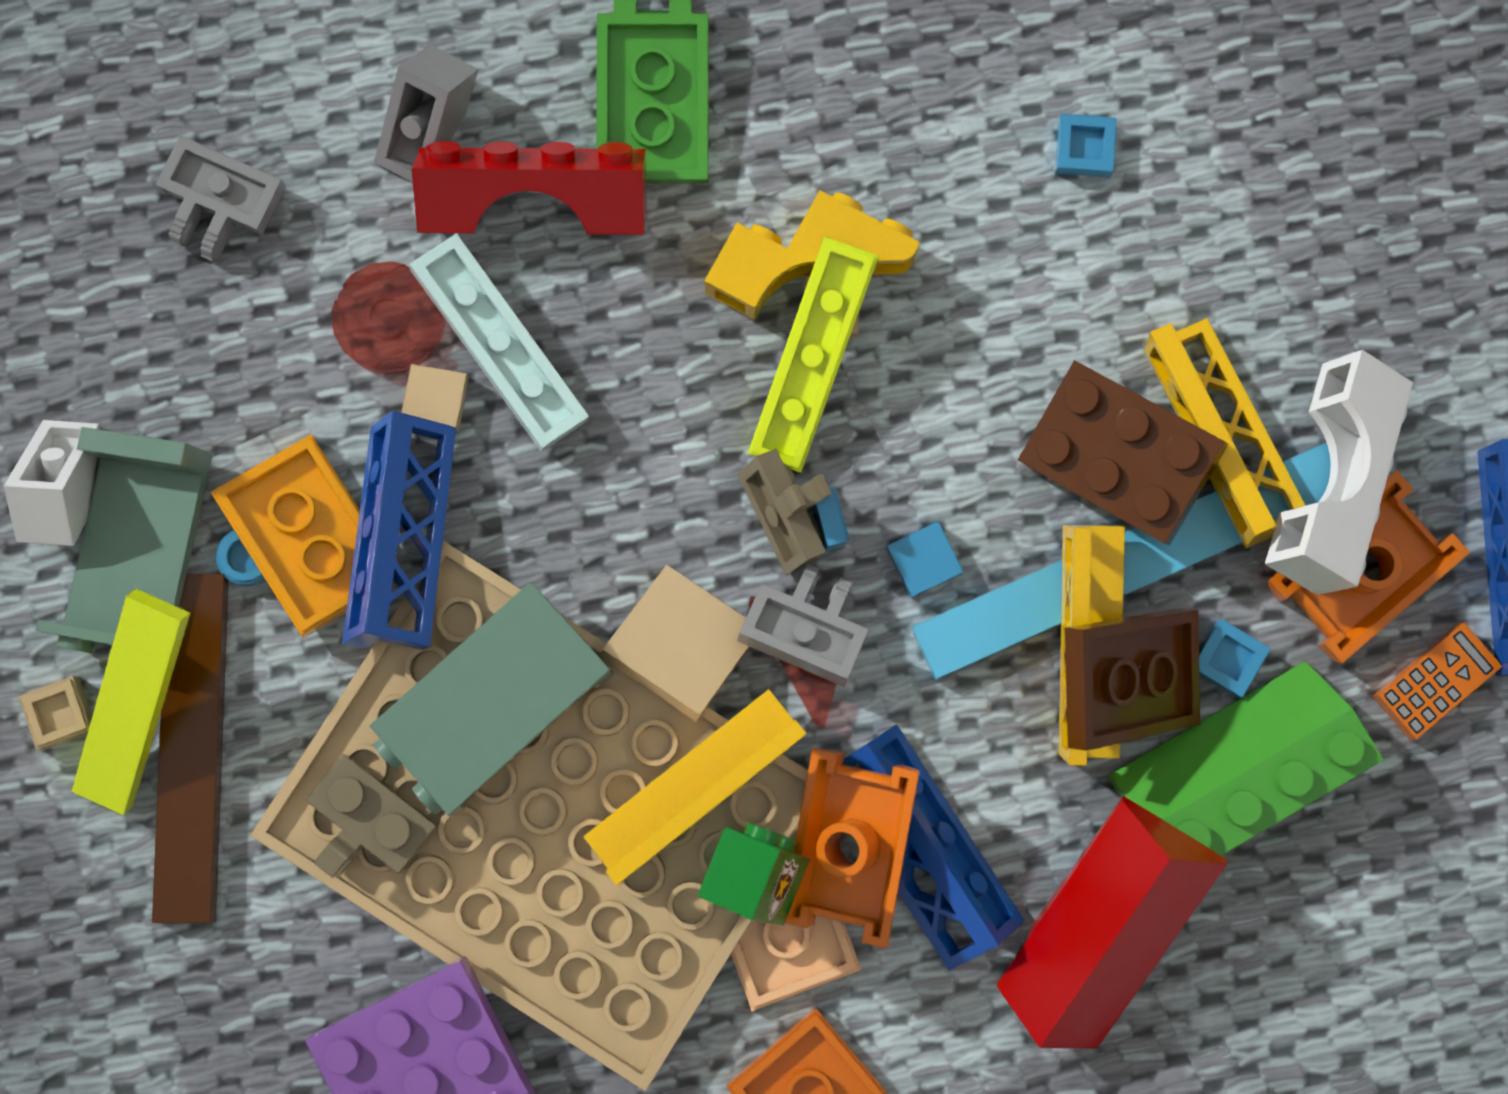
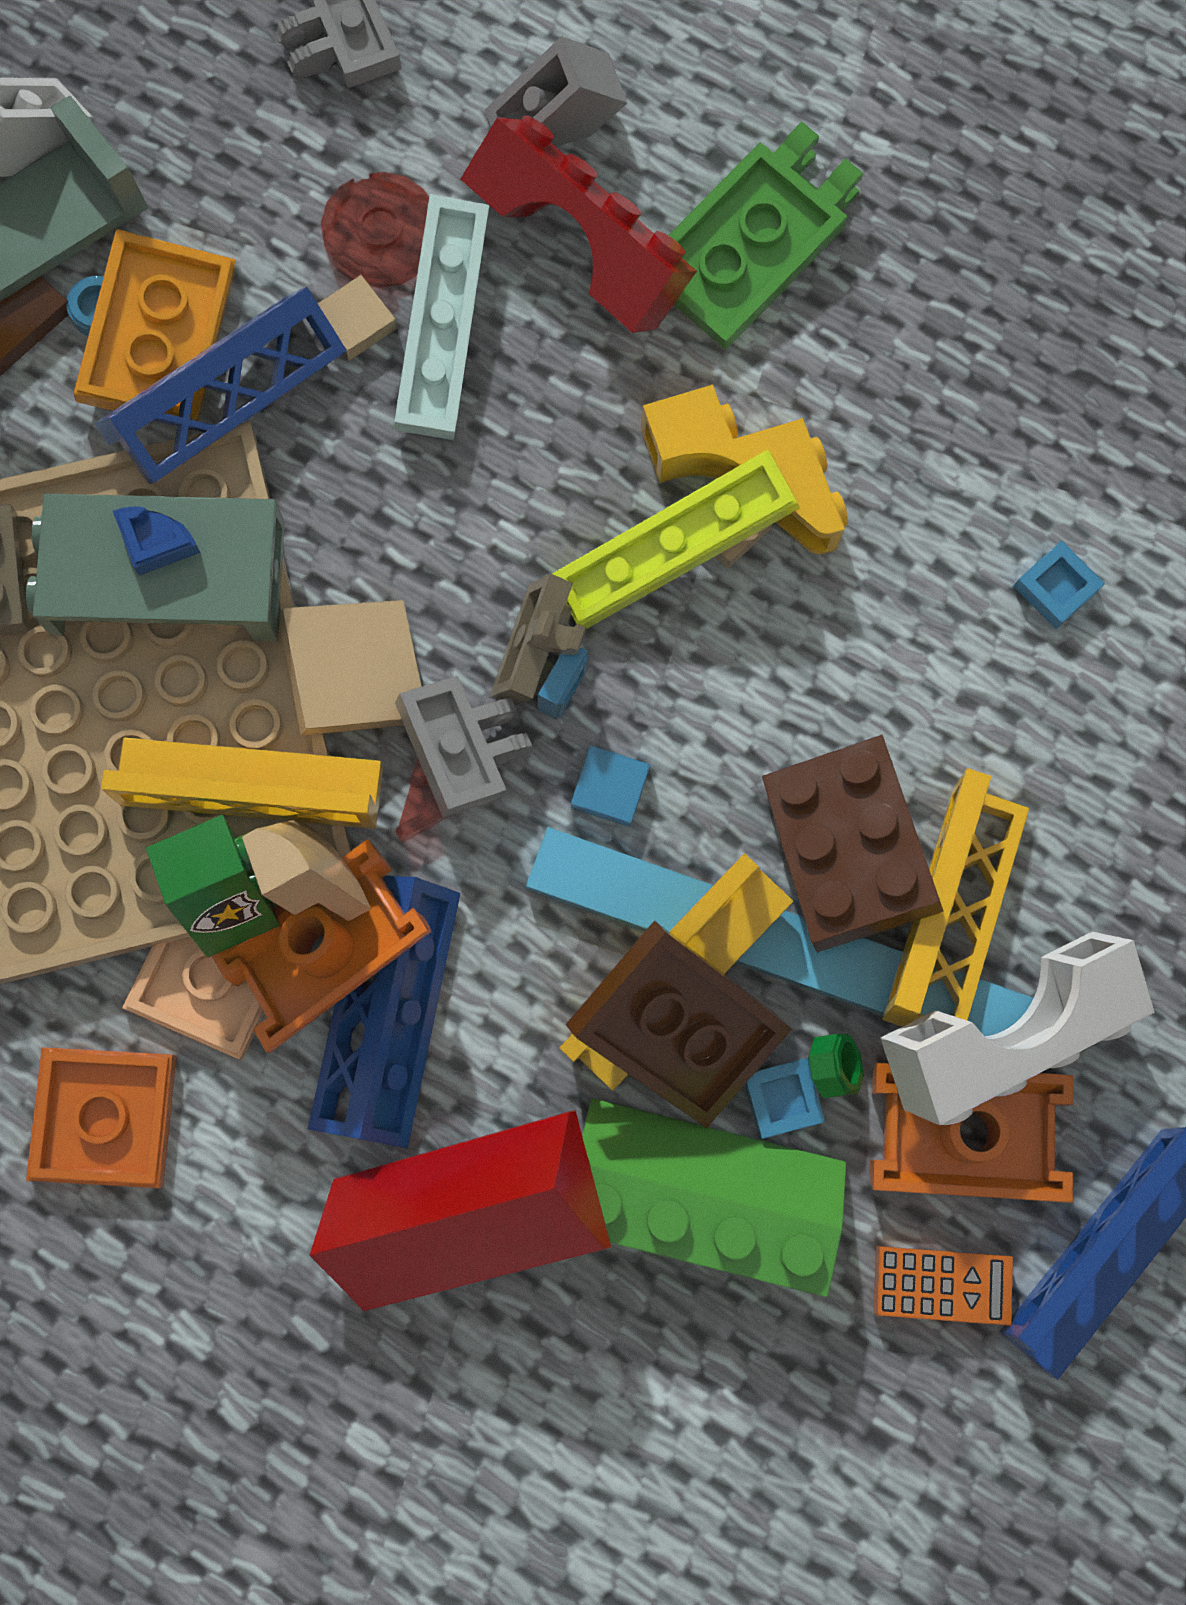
camera: 40 degrees right, 5 degrees down
(478, 686) = (153, 538): none -> blue tile
(800, 808) = (303, 869): none -> tan slope
(1244, 606) = (835, 1065): none -> green tile

